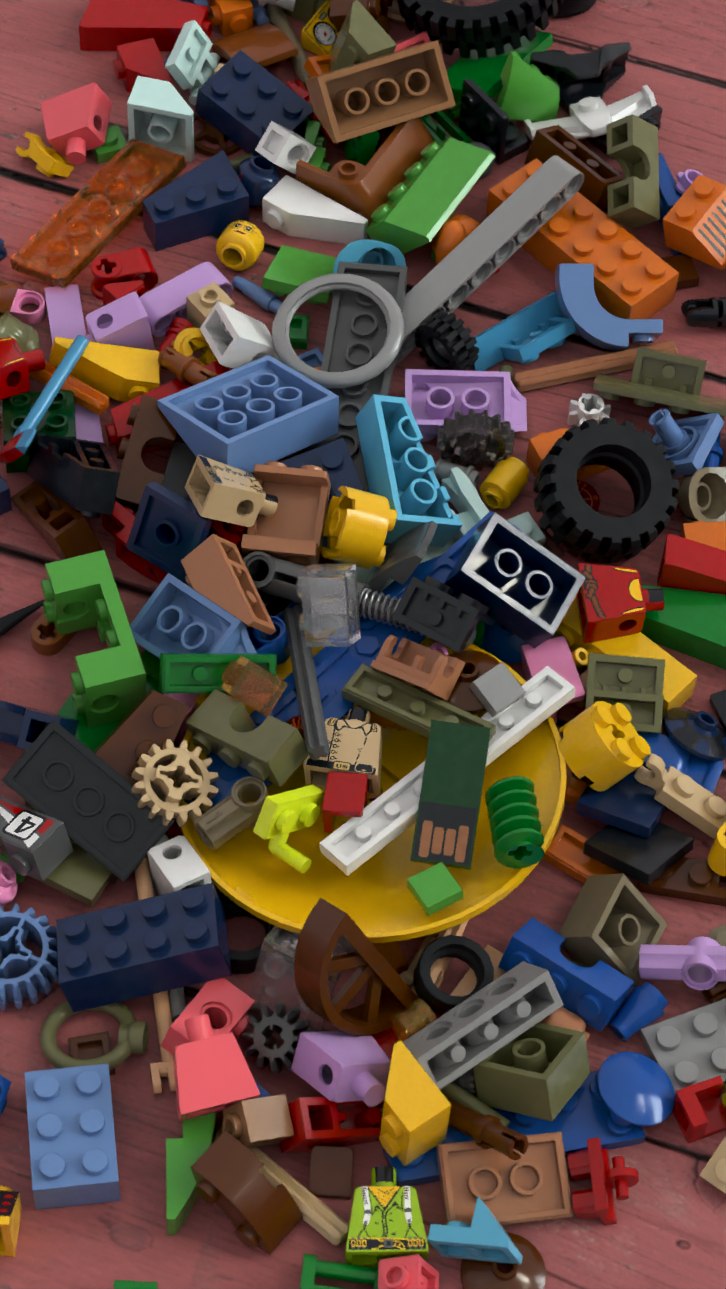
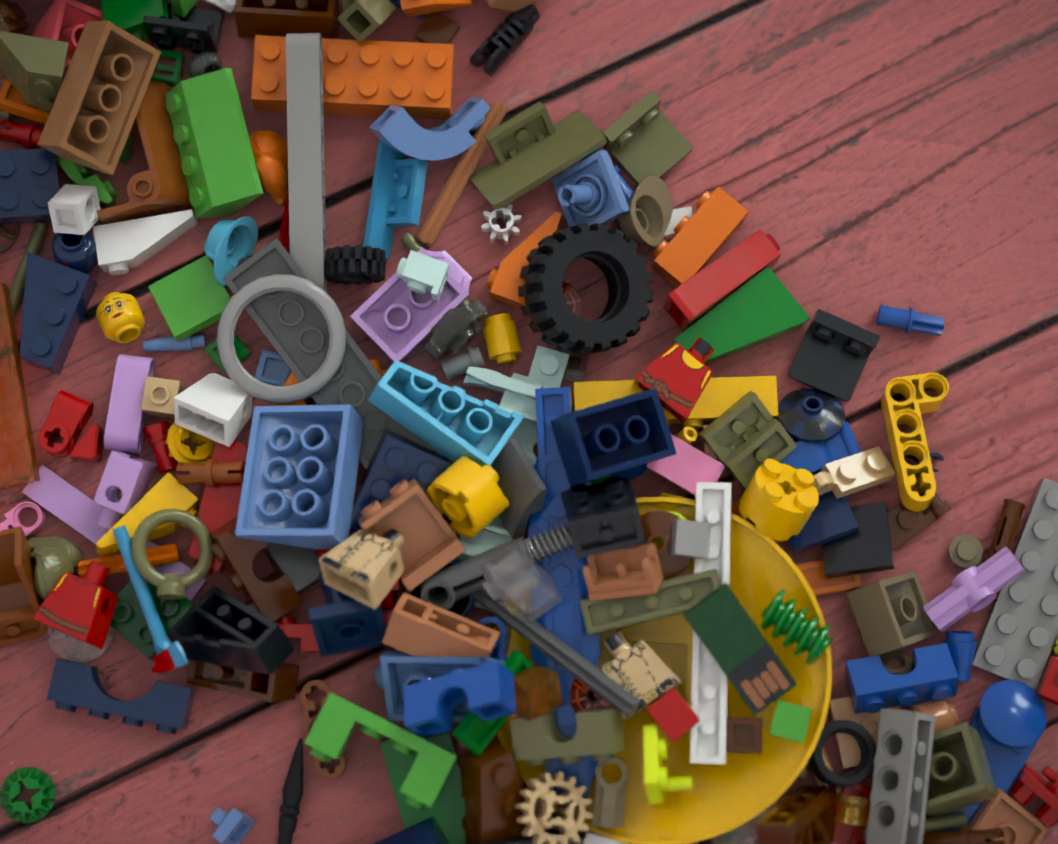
camera: 45 degrees left, 25 degrees up
(75, 403) = (172, 585): none -> olive piece
(216, 634) = (432, 701): none -> blue arch
(386, 869) = (744, 735): none -> reddish brown tile
(492, 380) = (423, 274): none -> light aqua brick

